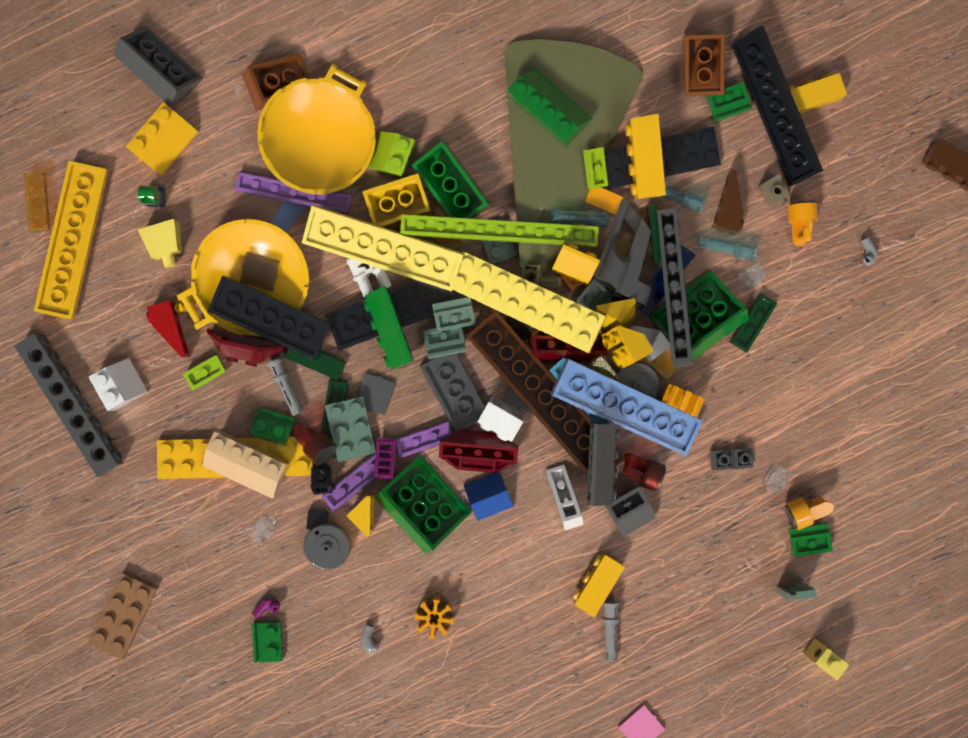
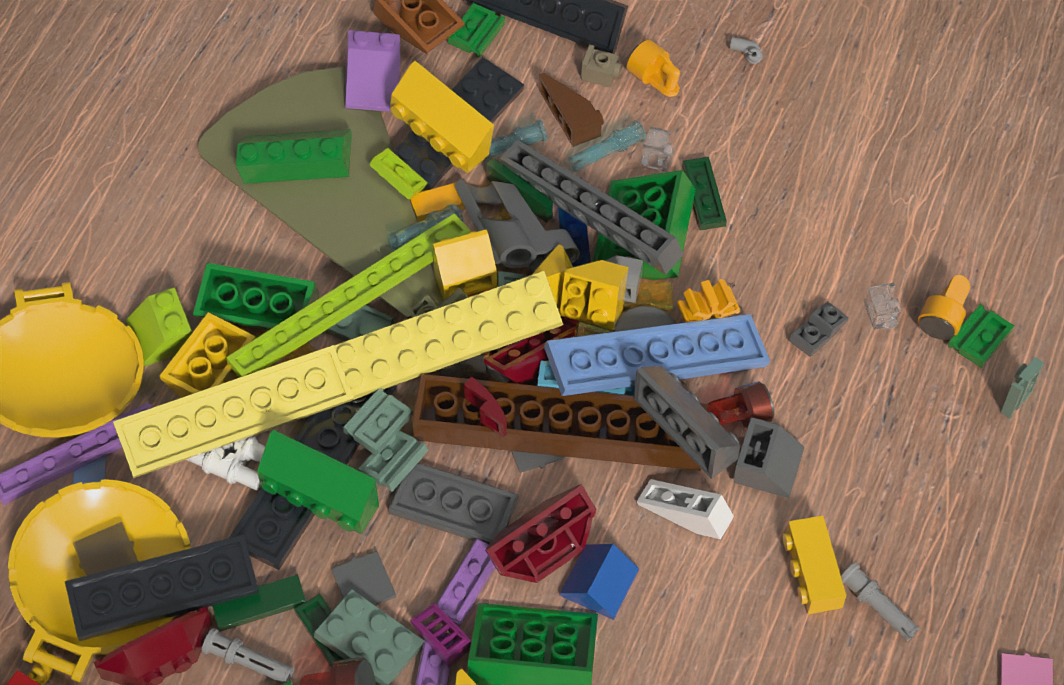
camera: 45 degrees left, 30 degrees down
(501, 418) = (533, 475): white slope -> none
(507, 370) = (490, 411): none -> dark red slope
(642, 82) = (371, 69): none -> medium lavender slope

